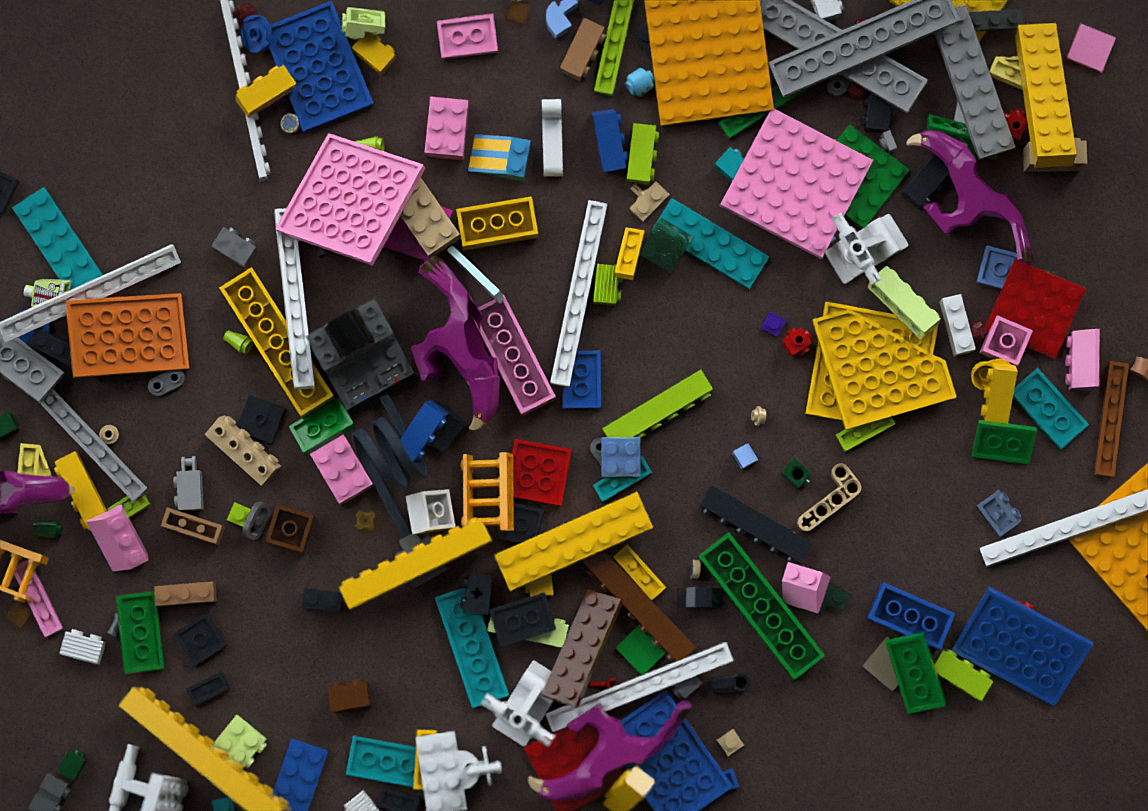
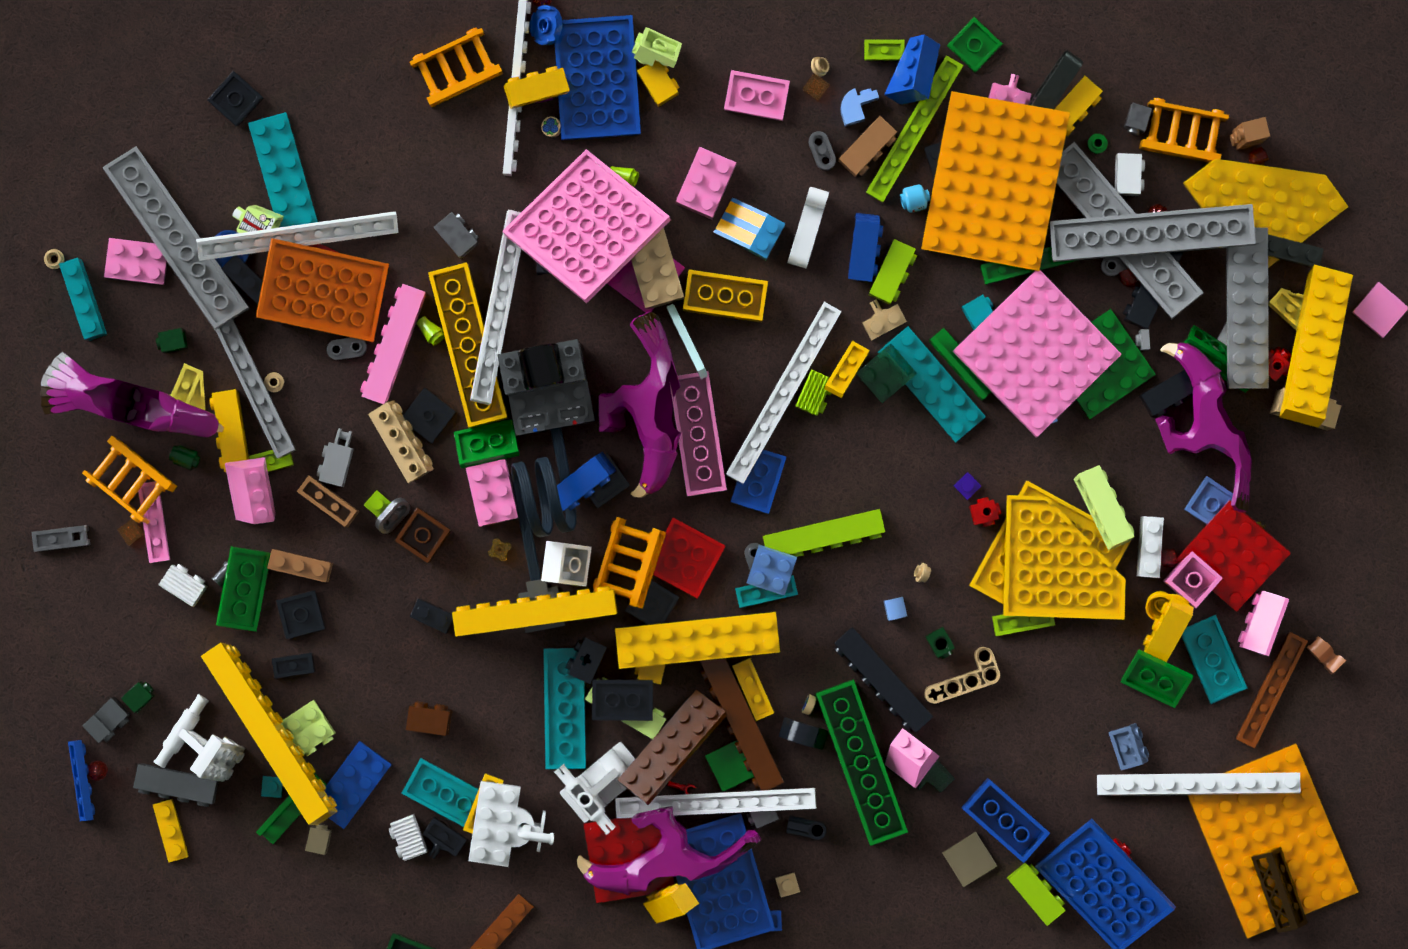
camera: 20 degrees right, 5 degrees up
(191, 116) = (454, 86): none -> light orange fence
(208, 364) = (394, 344): none -> bright pink brick
(542, 67) = (822, 151): none -> flat silver plate
(711, 205) = (945, 345): none -> green fence
(864, 249) = (1083, 440): white plate -> none
(915, 673) = (991, 877): green plate -> none

